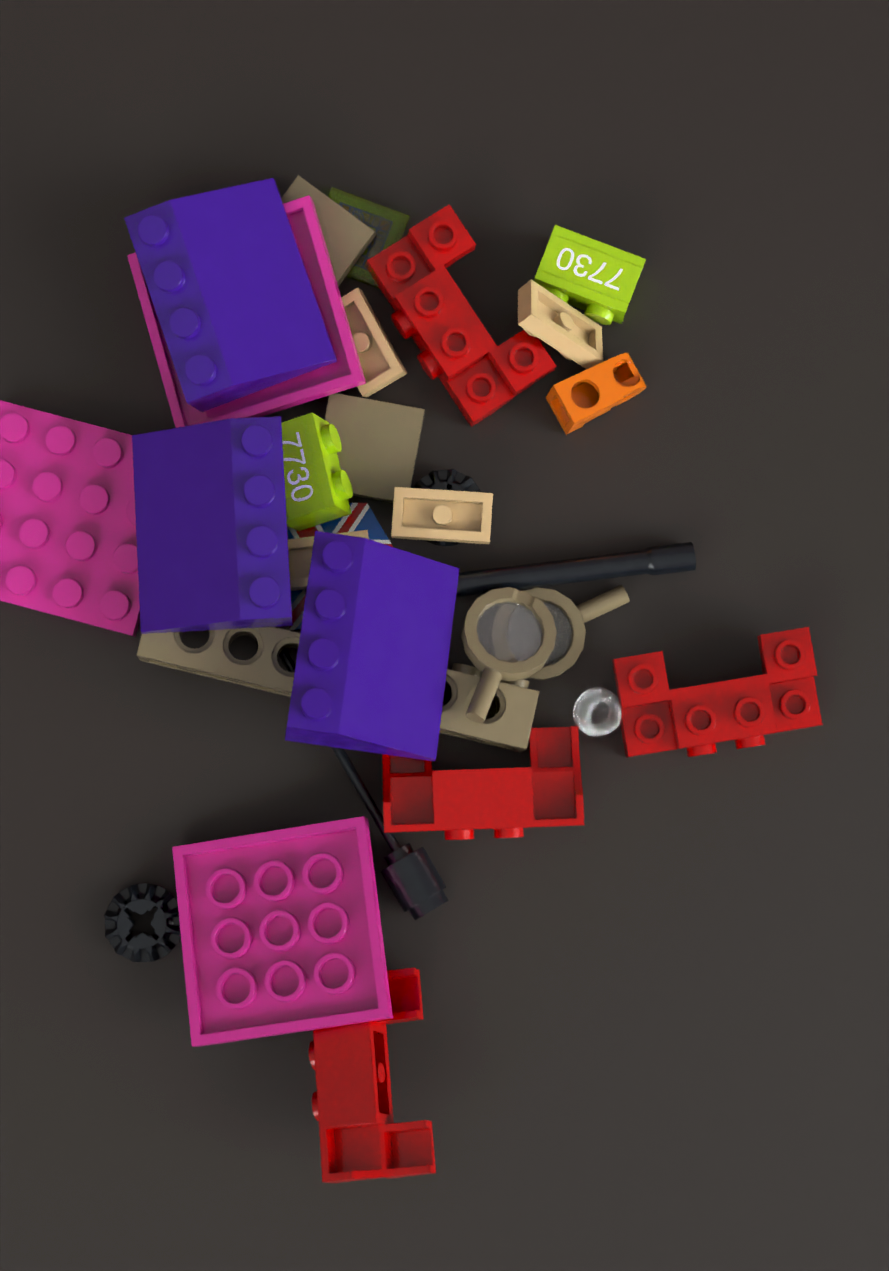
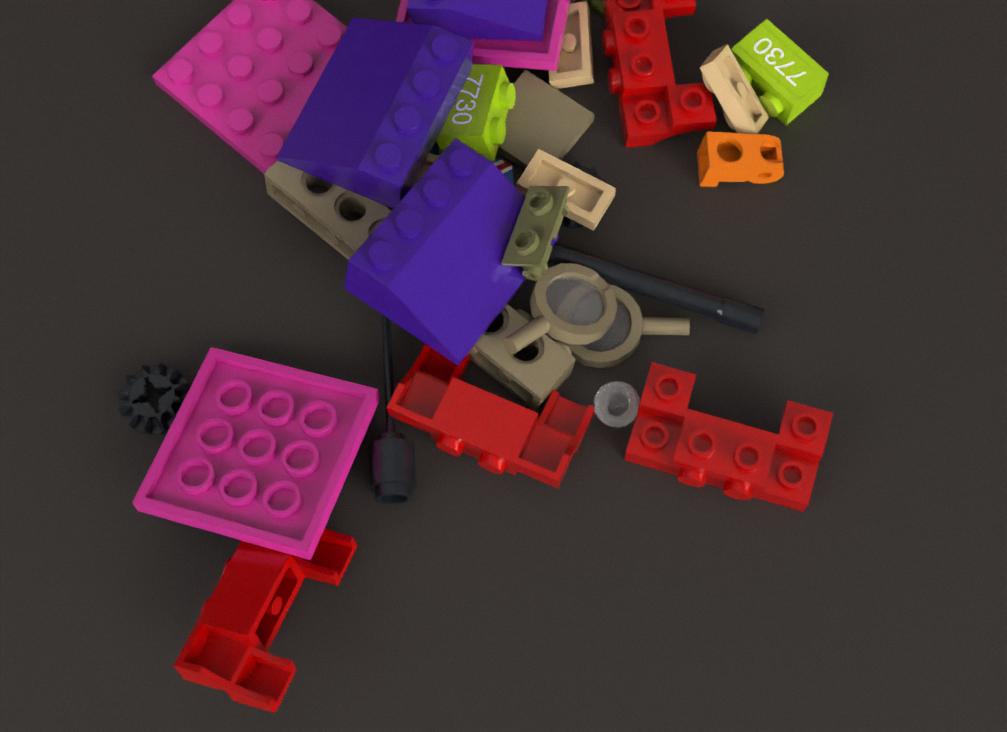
camera: 30 degrees right, 15 degrees down
(440, 583) = (536, 228): none -> olive hinge

